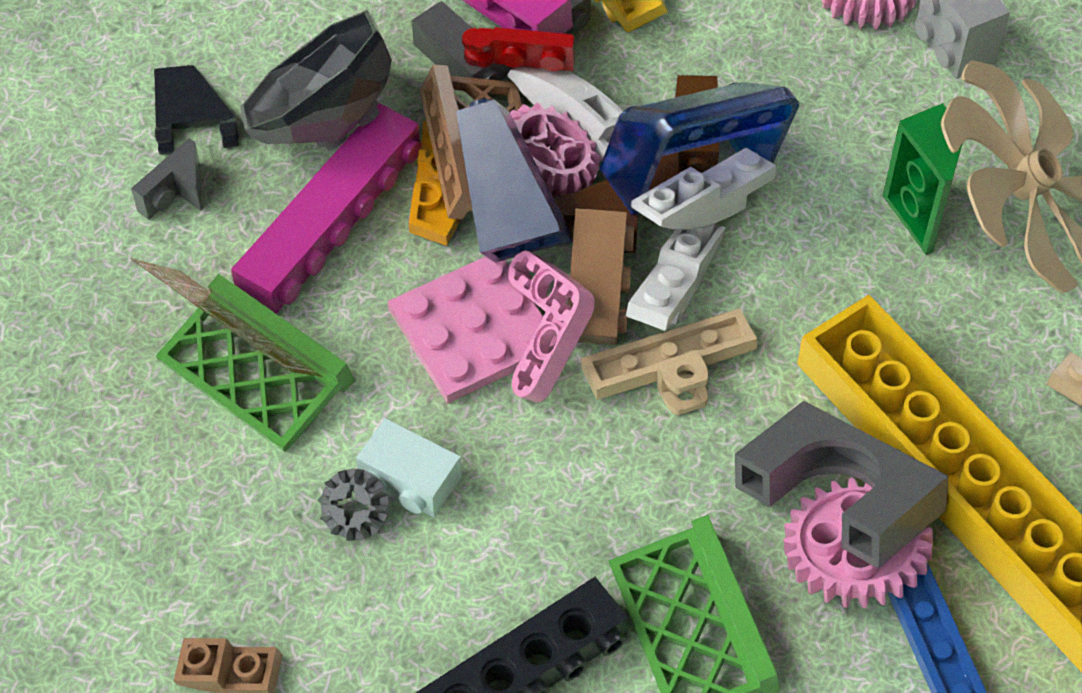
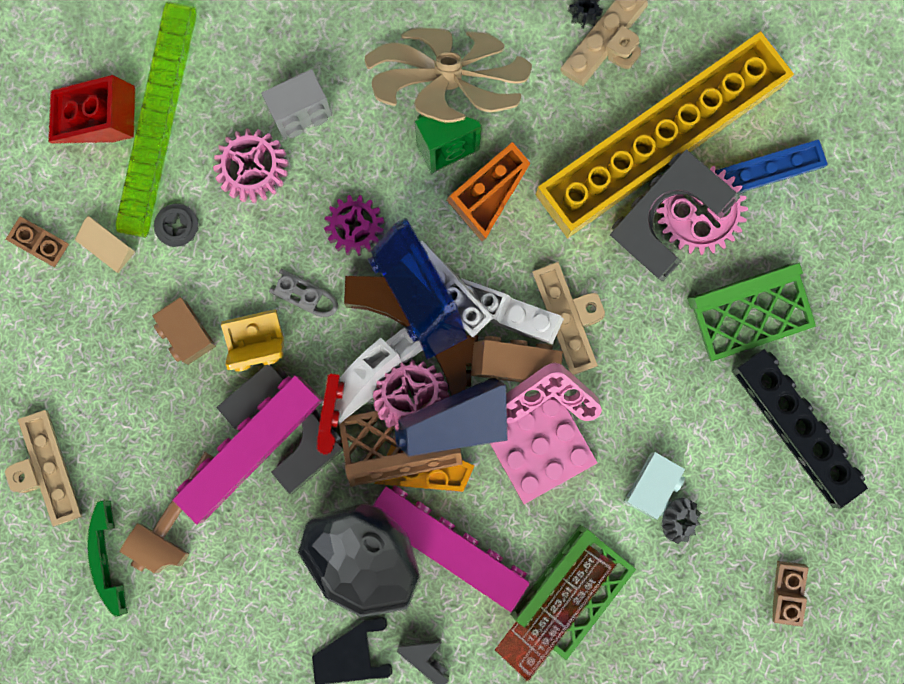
camera: 90 degrees left, 25 degrees up
(686, 50) = (309, 298): none -> light grey piece
(814, 92) = (342, 221): none -> magenta gear
(860, 249) = (488, 191): none -> orange wedge

